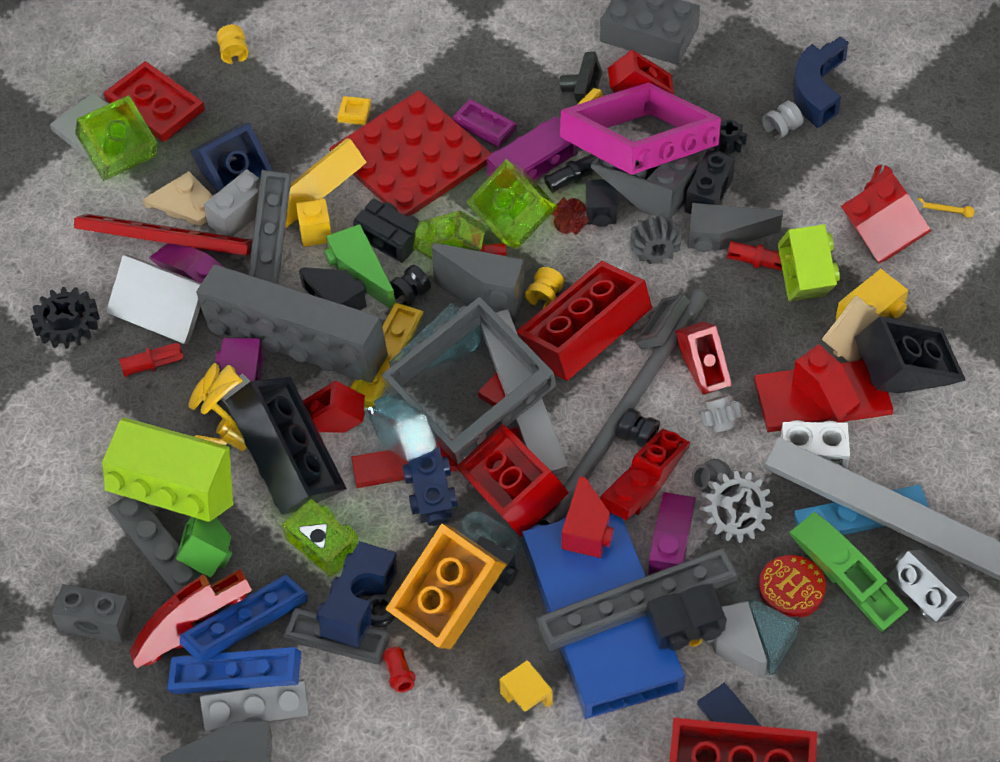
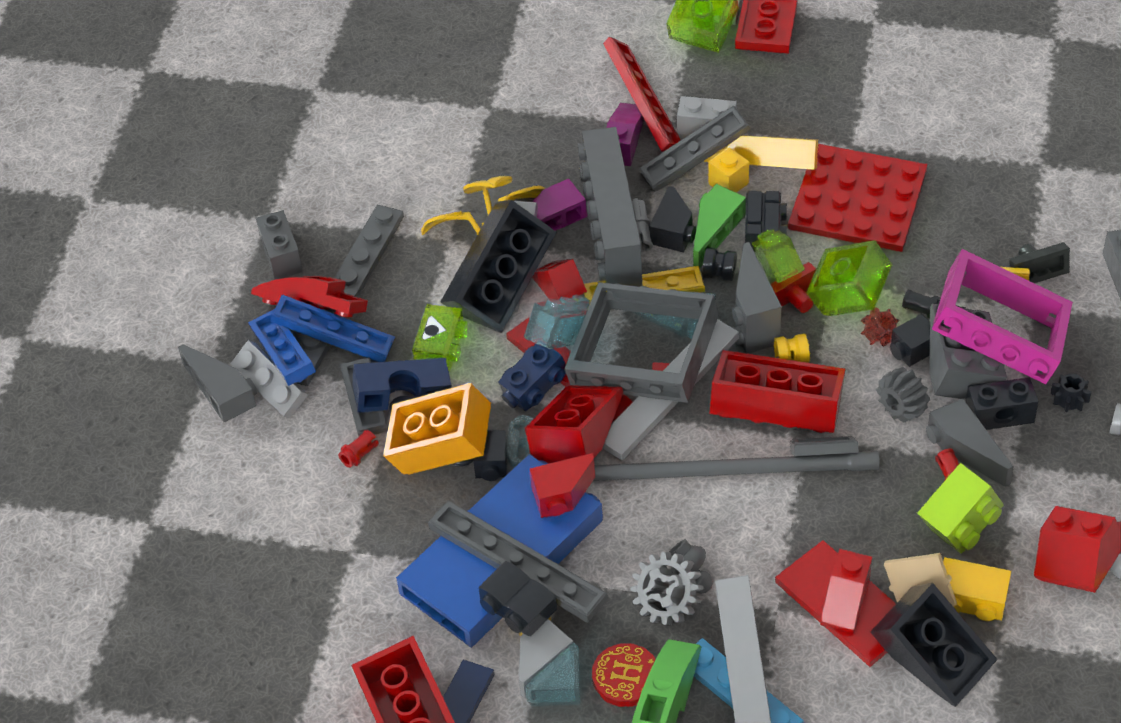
camera: 60 degrees right, 5 degrees down
(64, 317) = (522, 86): black gear -> none
(151, 359) = (524, 154): red axle -> none
(155, 299) = (569, 117): tile -> none
(168, 470) = (415, 211): lime slope -> none
(181, 199) = (689, 84): tan wing -> none
(204, 545) = (380, 270): bright green slope -> none
(230, 155) = (754, 91): dark blue slope -> none
(232, 43) = (866, 28): yellow wheel -> none
(354, 110) = (871, 138): yellow tile -> none
(485, 123) = (932, 223): magenta plate -> none
(525, 687) = (393, 534): yellow panel -> none
(535, 151) = (919, 268): magenta brick -> none
(636, 70) = (1079, 287): red slope -> none
(637, 427) = (699, 485): black wheel -> none
(646, 475) = (651, 515): red slope -> none
(671, 532) = (608, 559): magenta slope -> none
(704, 356) = (810, 492): red slope -> none
(721, 413) = (759, 534): light grey gear -> none
(816, 436) = (774, 621): white brick -> none

